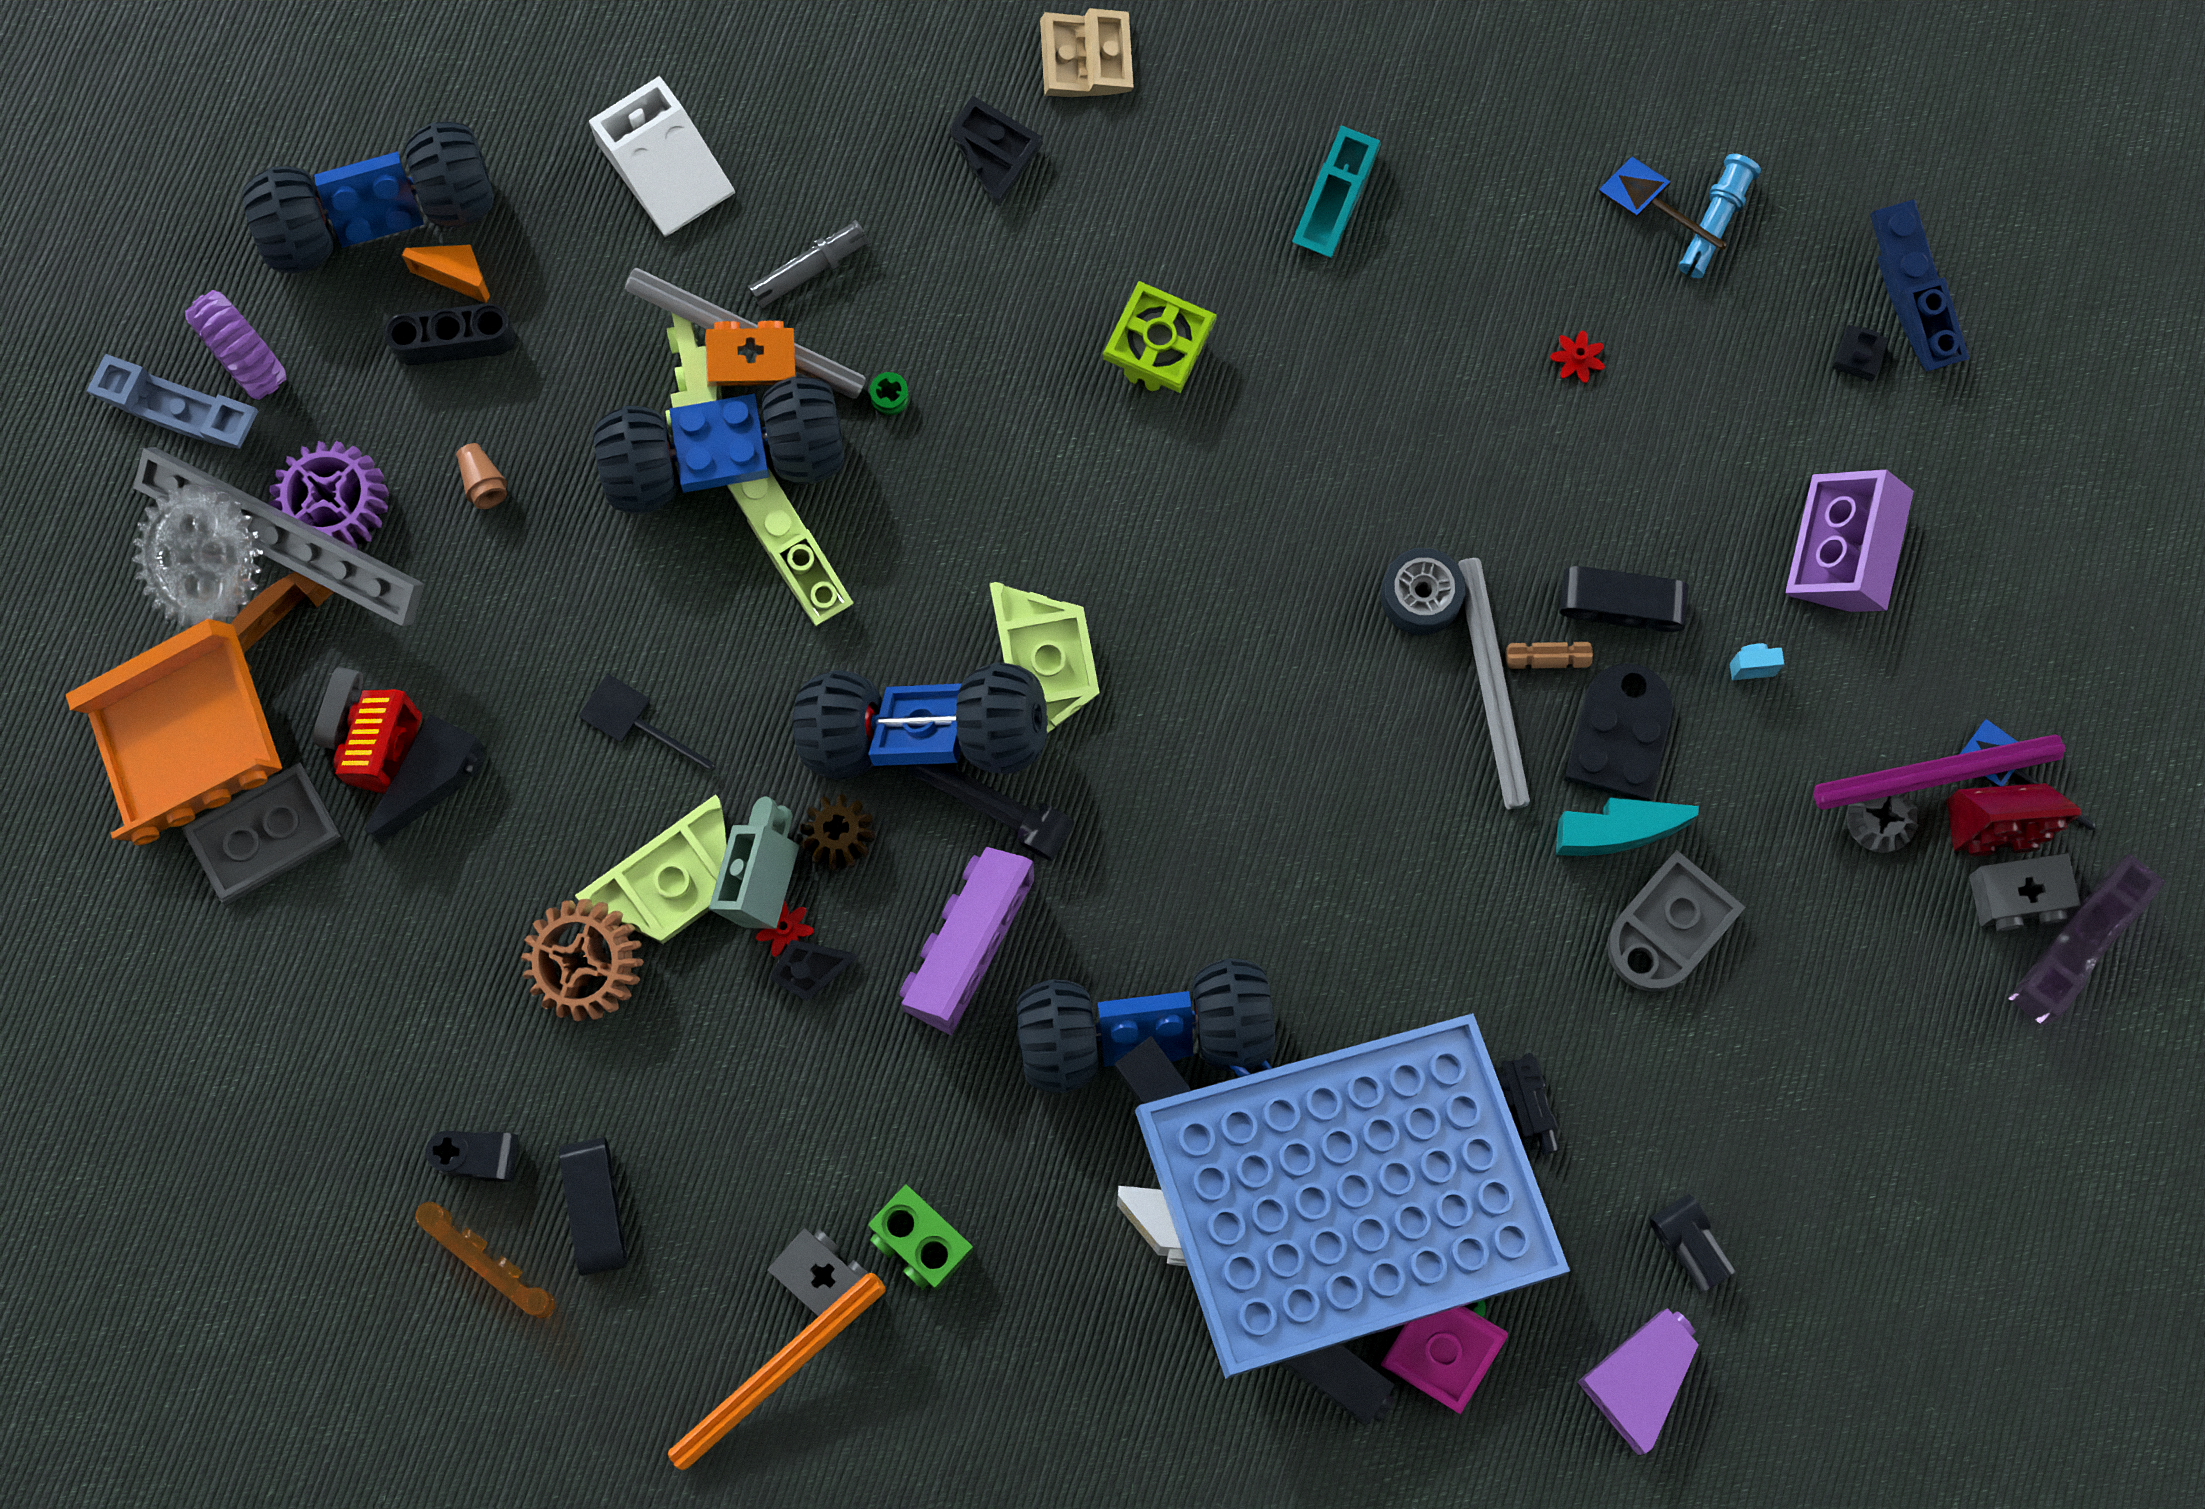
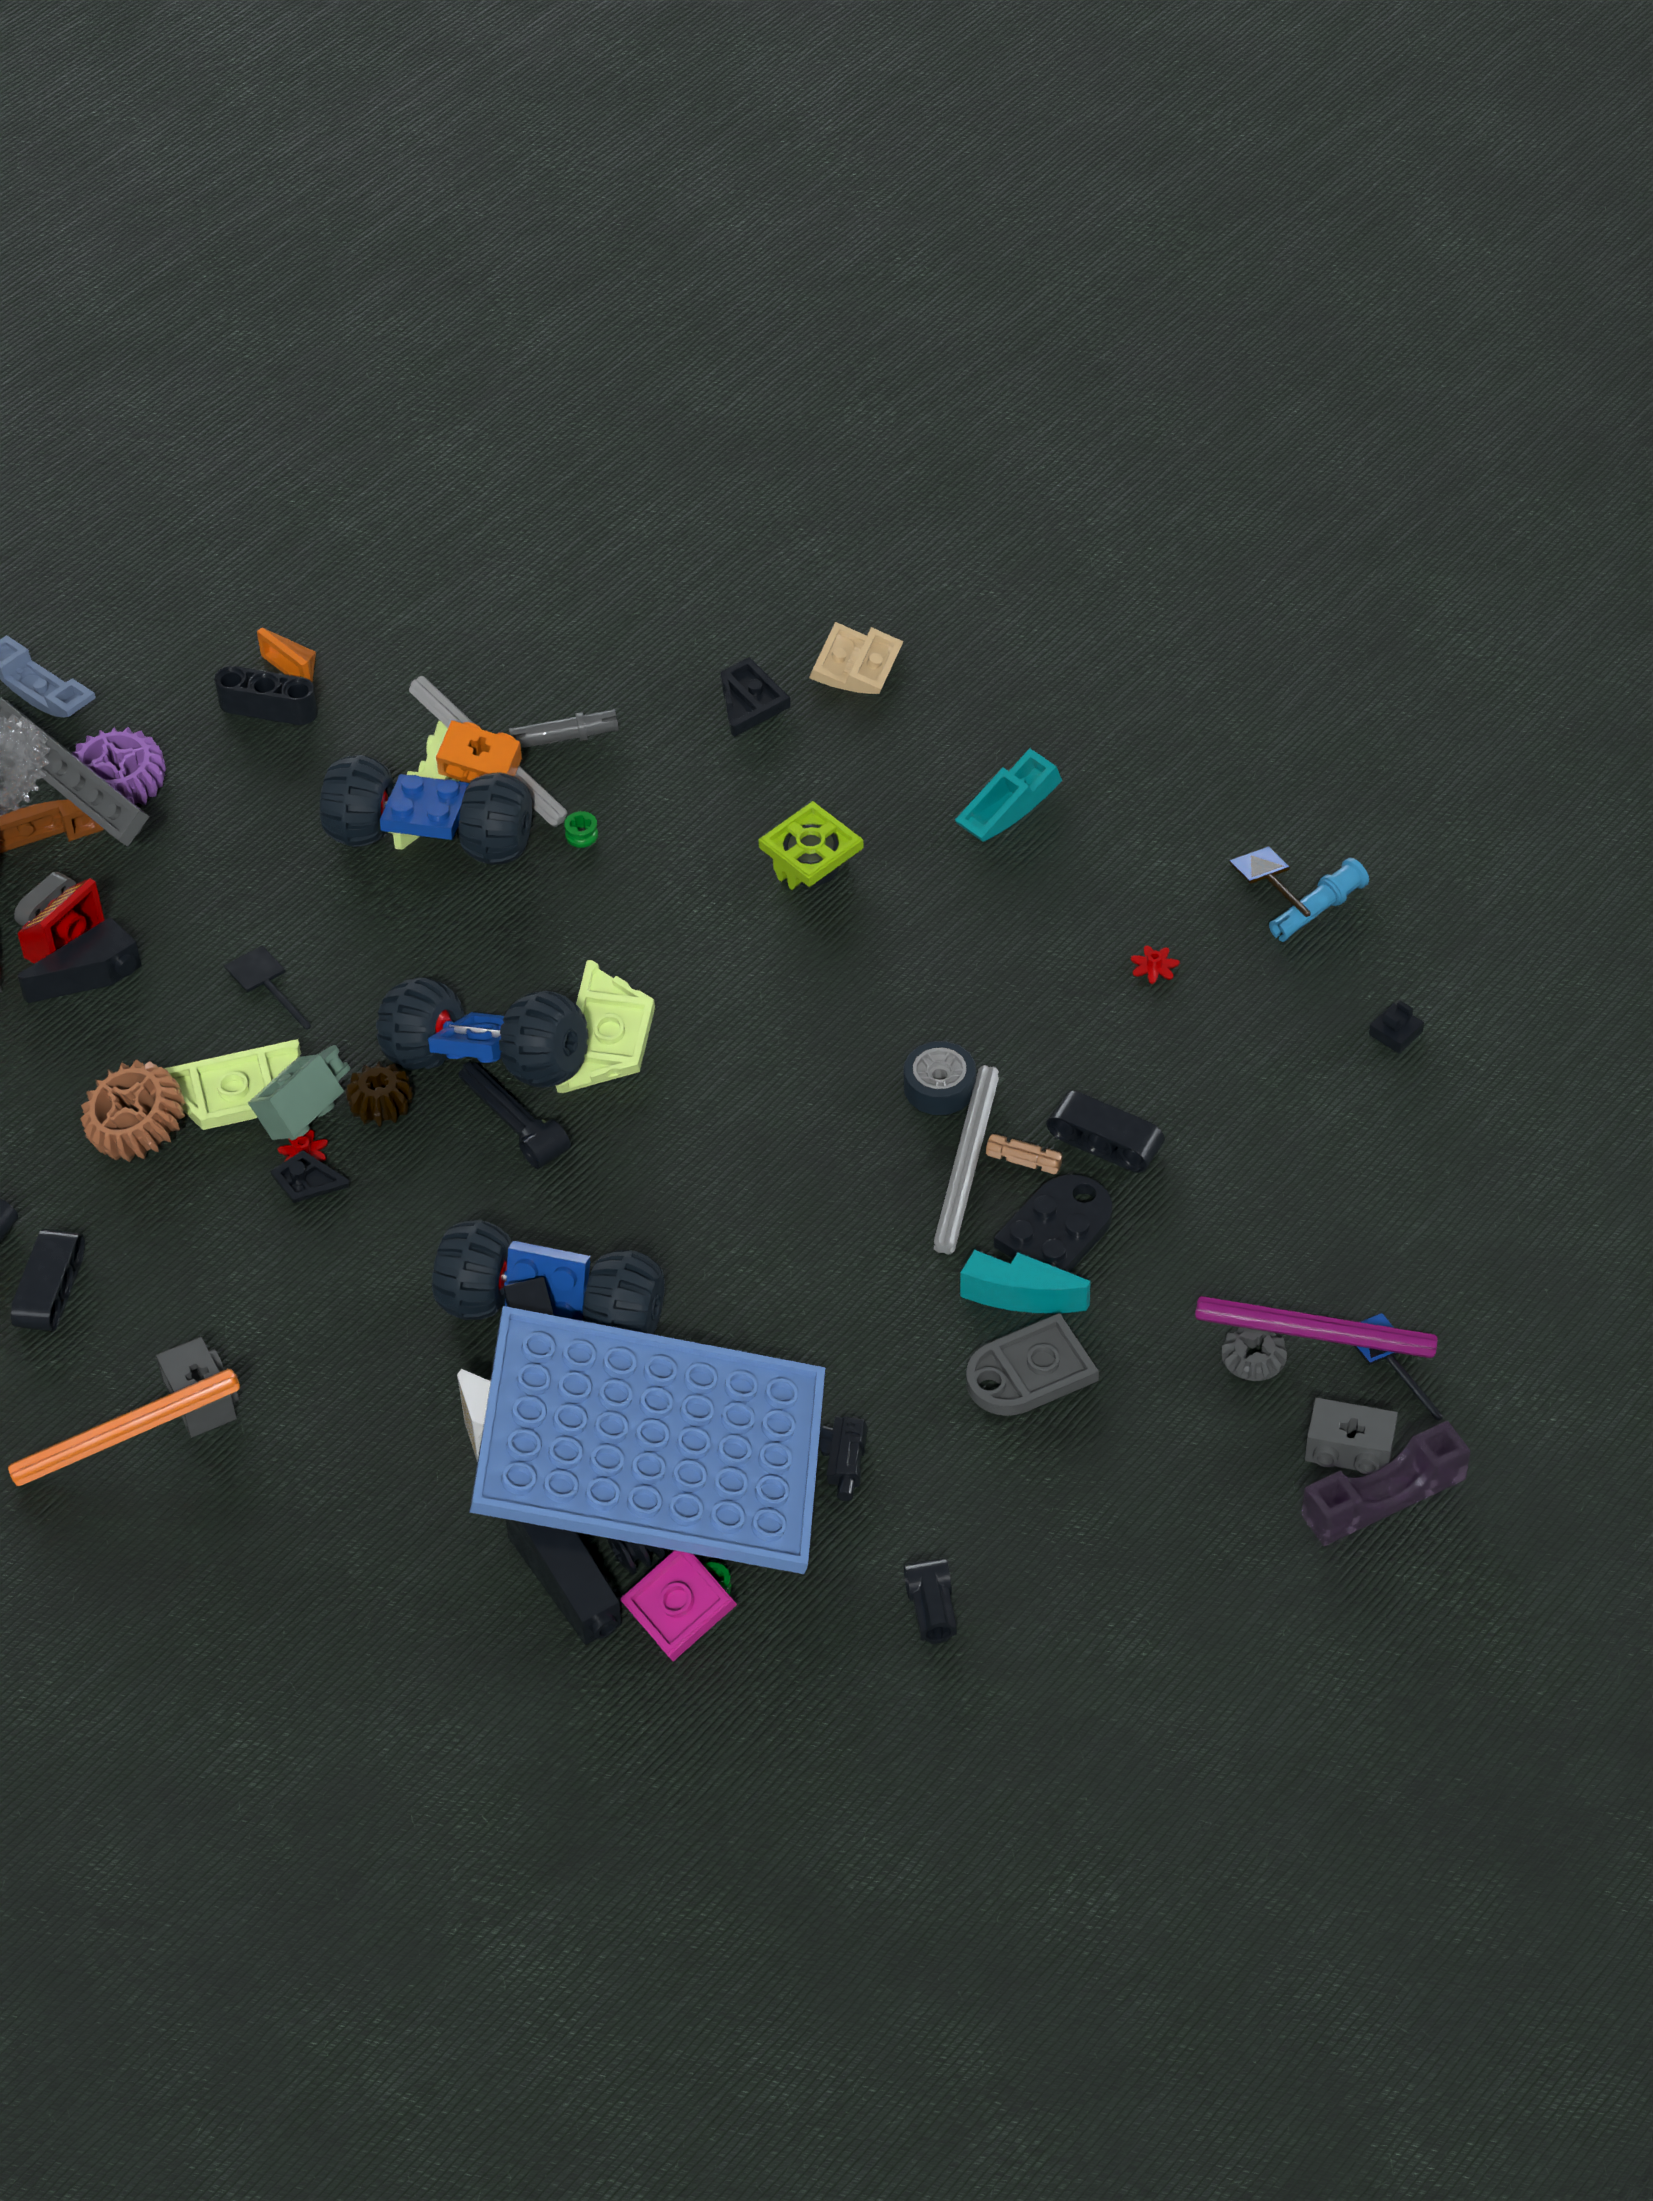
camera: 25 degrees right, 25 degrees down
(235, 344) = (102, 650): medium lavender gear -> none
(368, 198) = (252, 588): black plate -> none
(480, 477) = (237, 791): nougat cone -> none
(661, 156) = (487, 627): white slope -> none
(791, 548) = (447, 896): yellowish green slope -> none
(927, 1231) = (289, 1375): bright green brick -> none
(968, 939) = (443, 1194): medium lavender slope -> none
(1643, 1377) = (837, 1677): medium lavender slope -> none
(1756, 662) = (1195, 1207): medium azure plate -> none
(1850, 540) = (1322, 1148): medium lavender slope -> none
(1915, 289) = (1465, 989): dark blue slope -> none
(2007, 817) = (1354, 1367): dark red slope -> none

